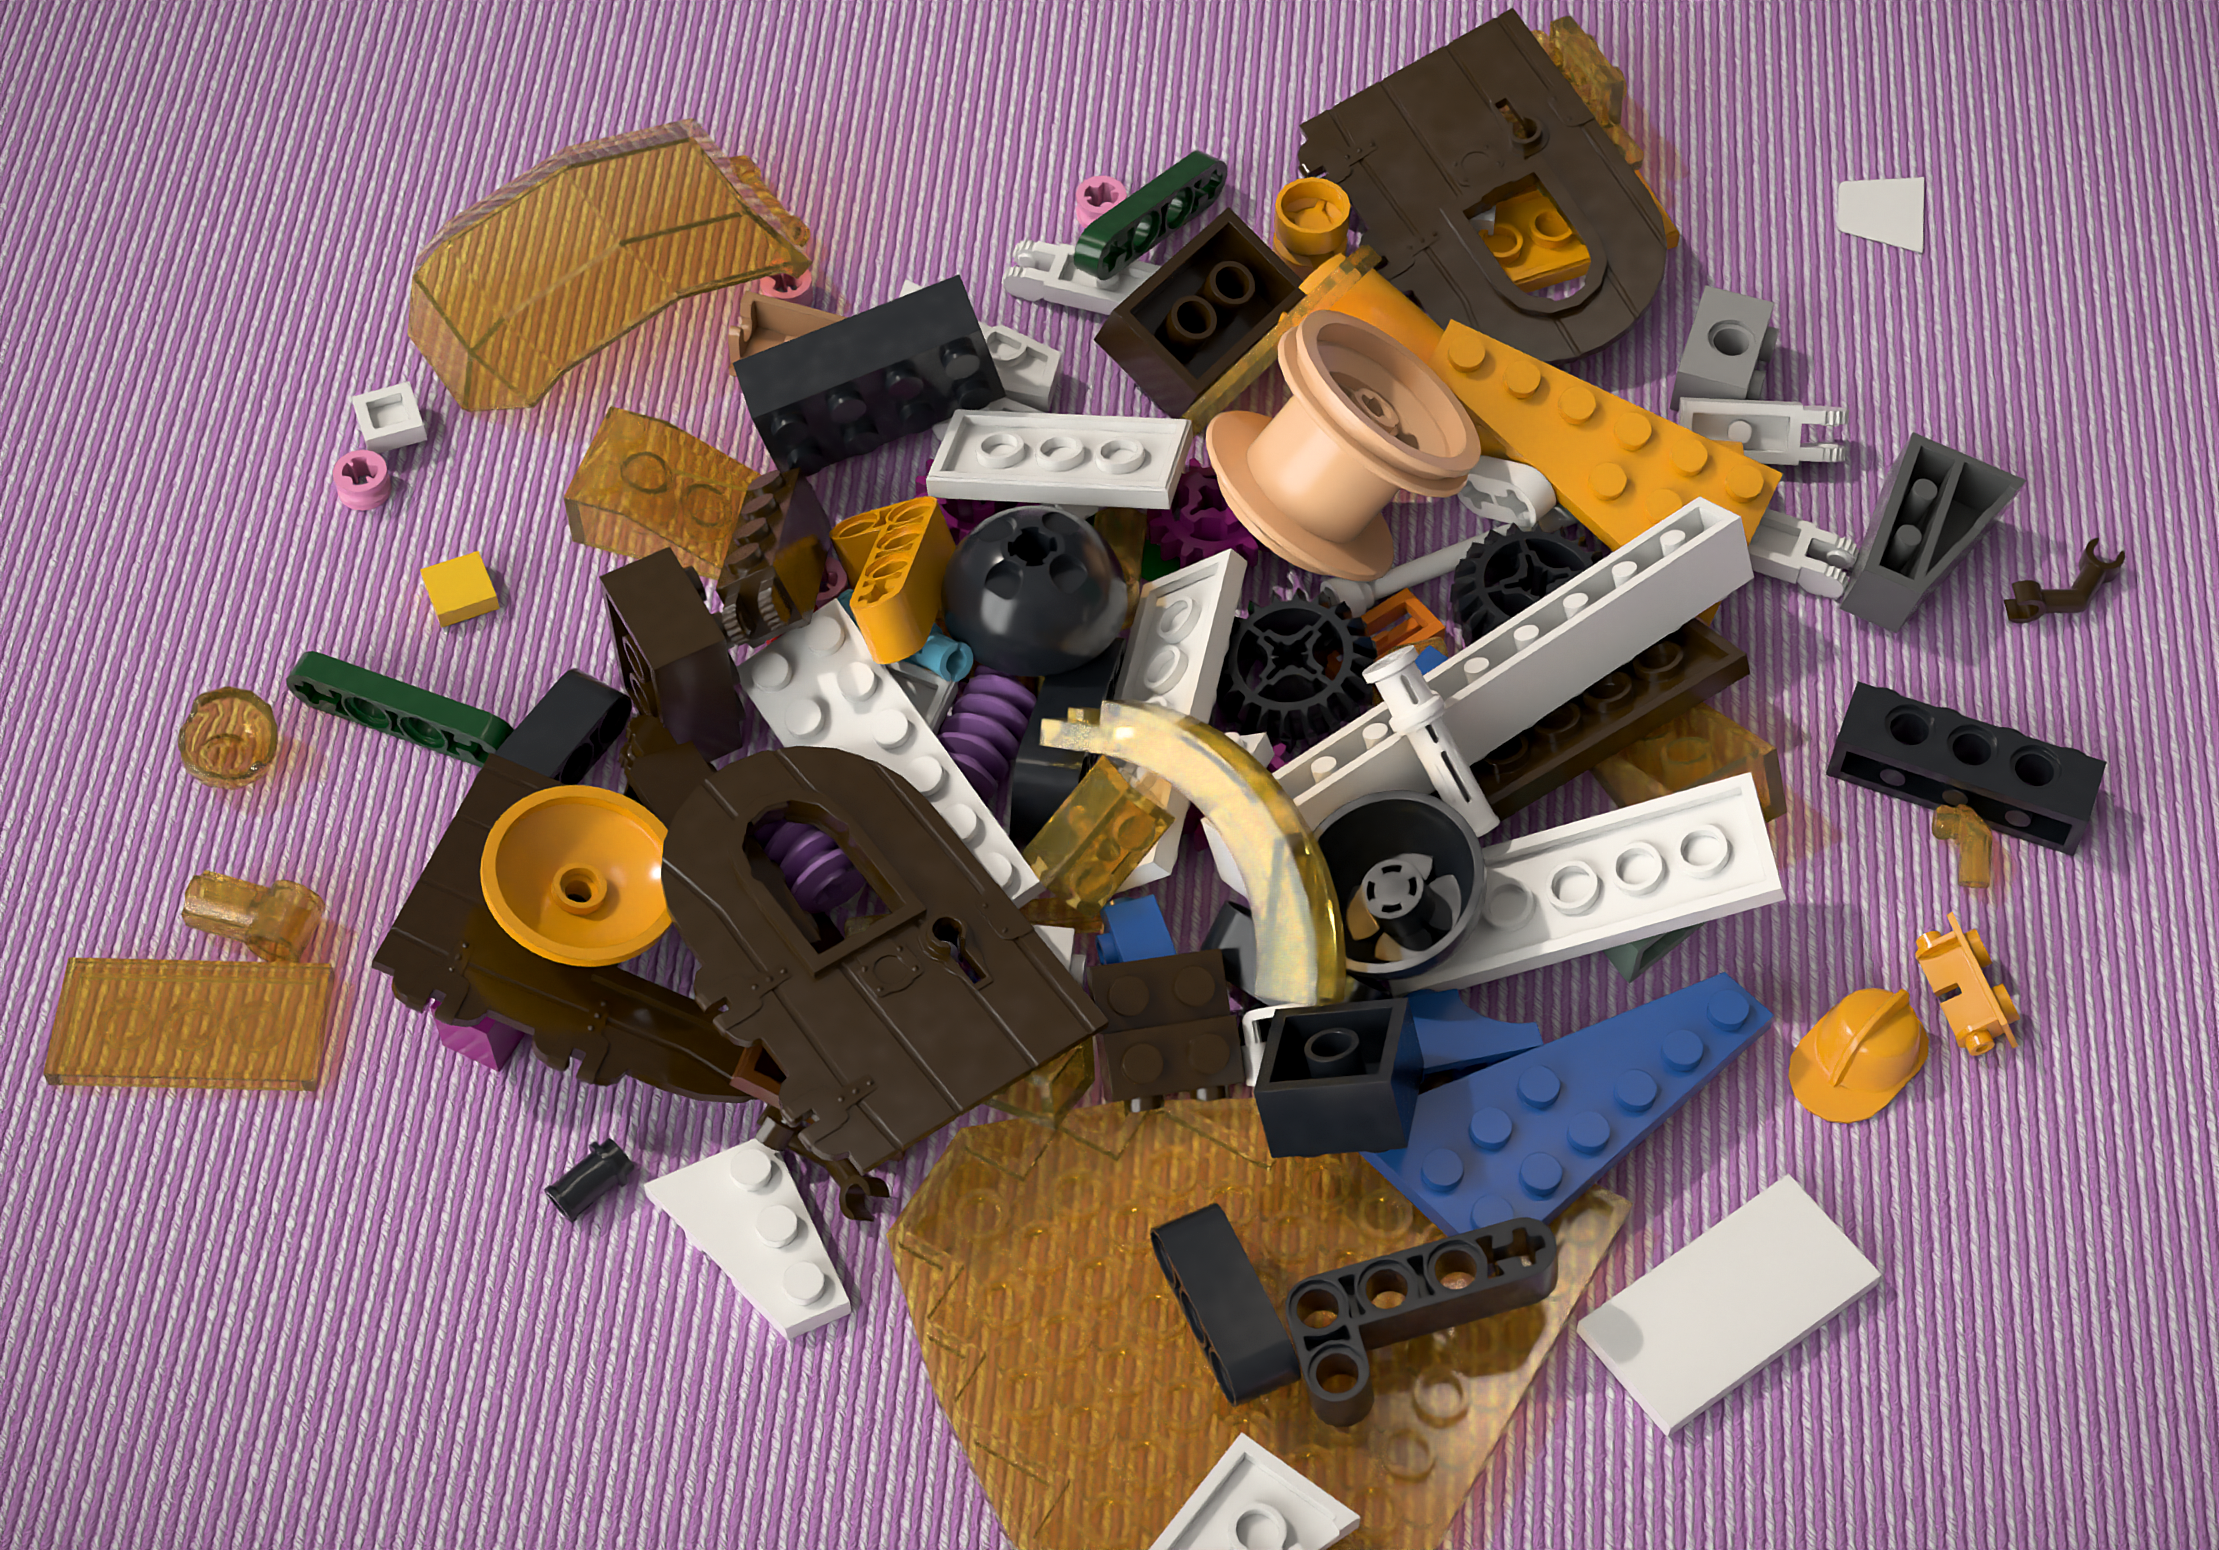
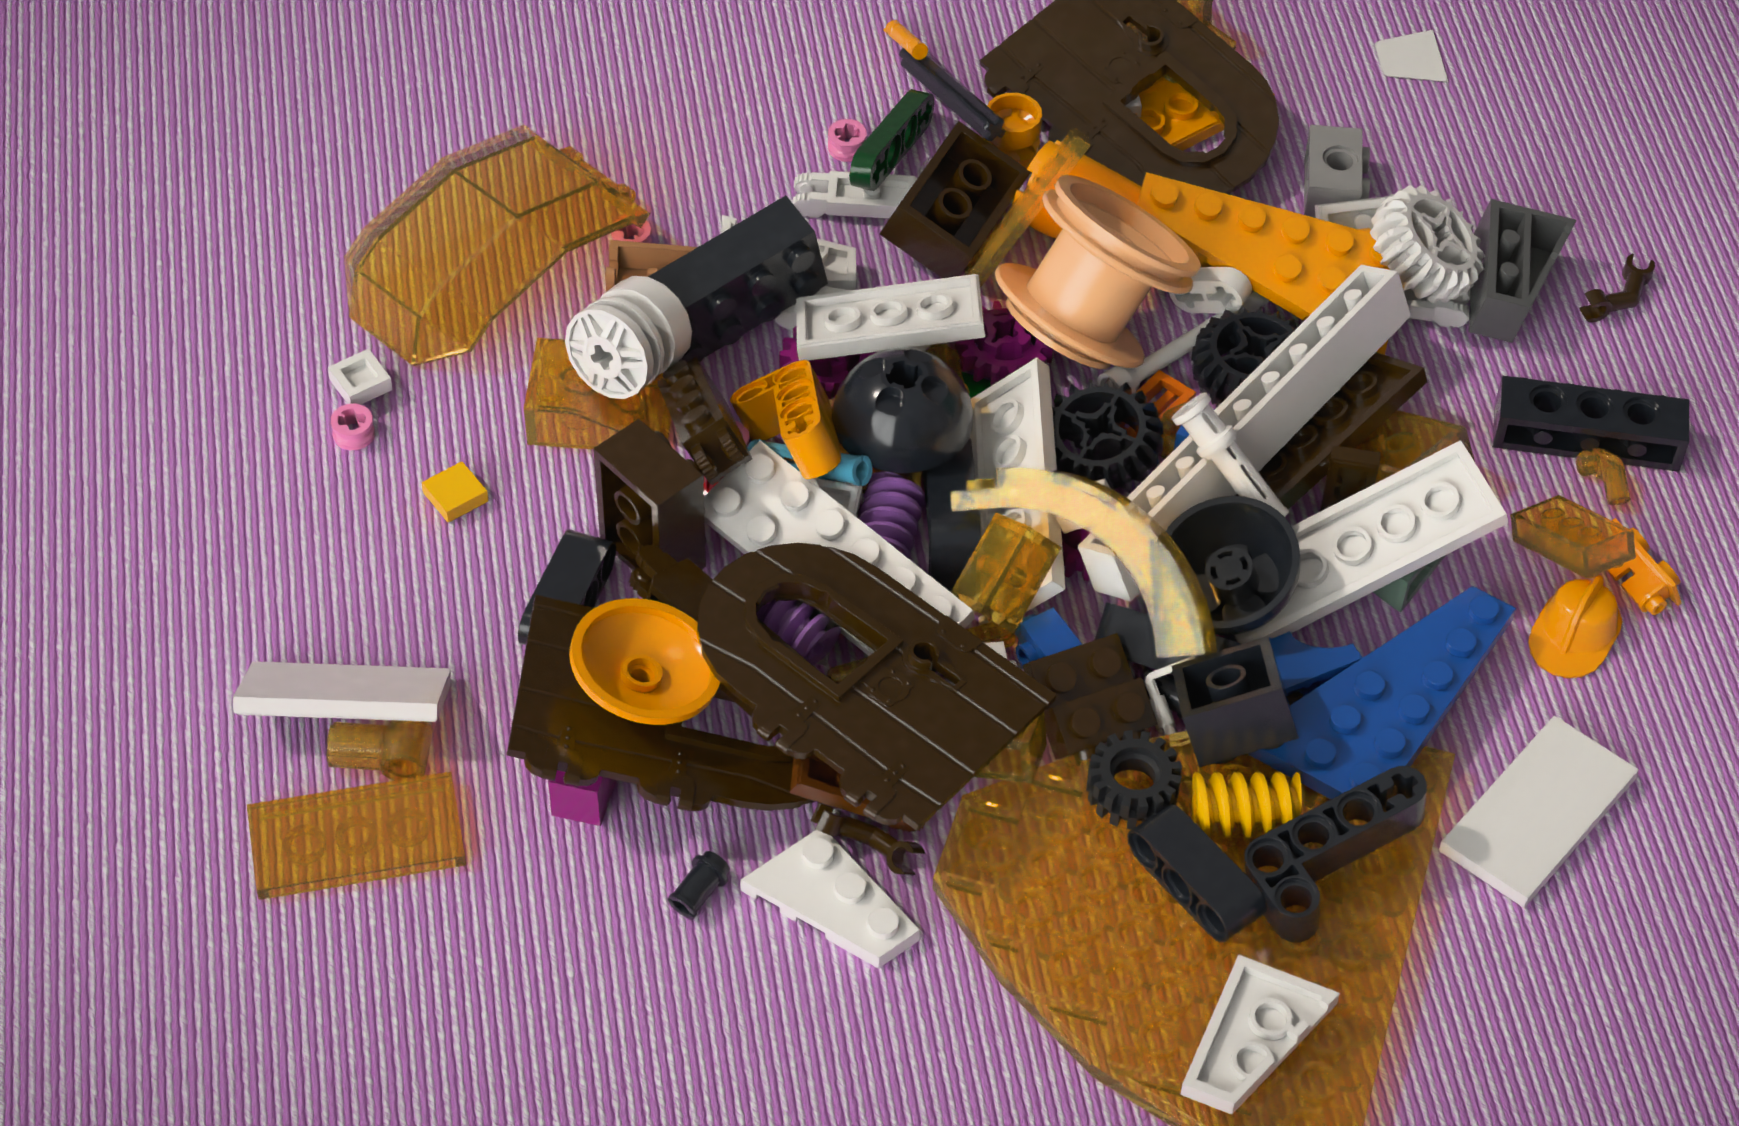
camera: 15 degrees left, 5 degrees down
(227, 832) = (342, 691): none -> white tile
(228, 738) = (319, 625): clear yellow hair -> none
(397, 708) = (391, 578): dark green beam -> none
(713, 428) = (628, 337): none -> white wheel
(1183, 1119) = (1138, 756): none -> black tyre
(1215, 82) = (906, 39): none -> light orange wheel
(1245, 165) = (954, 95): none -> black axle
(1316, 1222) = (1245, 803): none -> yellow piece
(1600, 784) = (1348, 474): none -> dark brown plate
(1804, 481) = (1427, 244): none -> white gear
(1886, 927) = (1573, 536): none -> clear yellow piece

